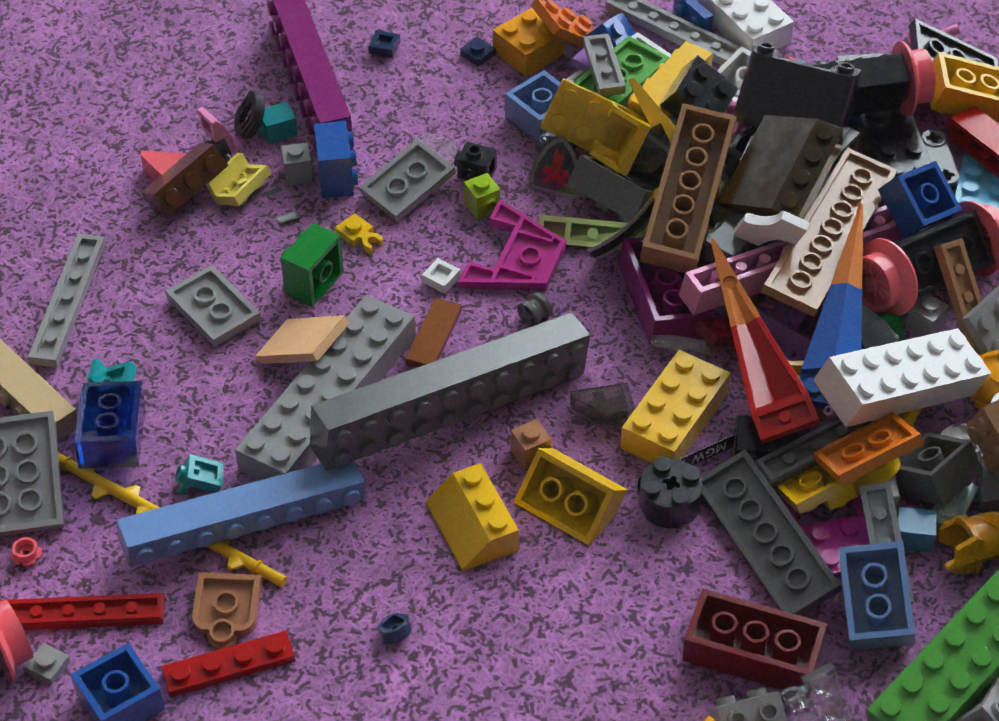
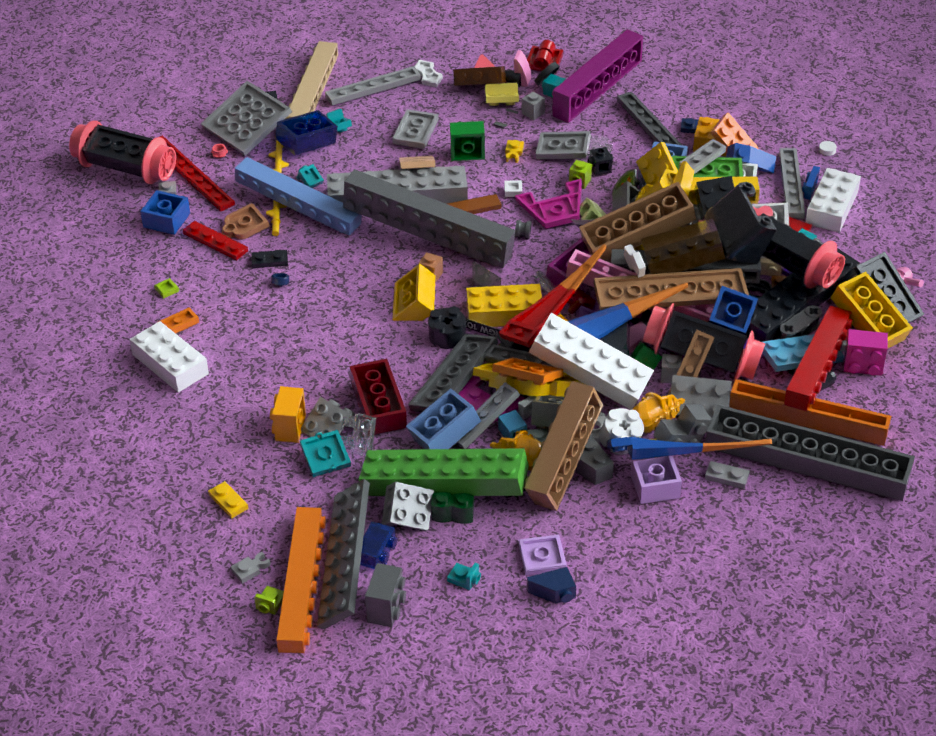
camera: 55 degrees right, 5 degrees down
(114, 230) = (429, 75): none -> white tile
(205, 93) = (544, 55): none -> red plate
(333, 618) = (269, 258): none -> black plate
(335, 159) = (545, 112): blue brick -> none
(384, 43) = (654, 92): dark blue plate -> none
(436, 81) = (646, 119): none -> dark grey plate
(473, 518) = (369, 272): yellow slope -> none

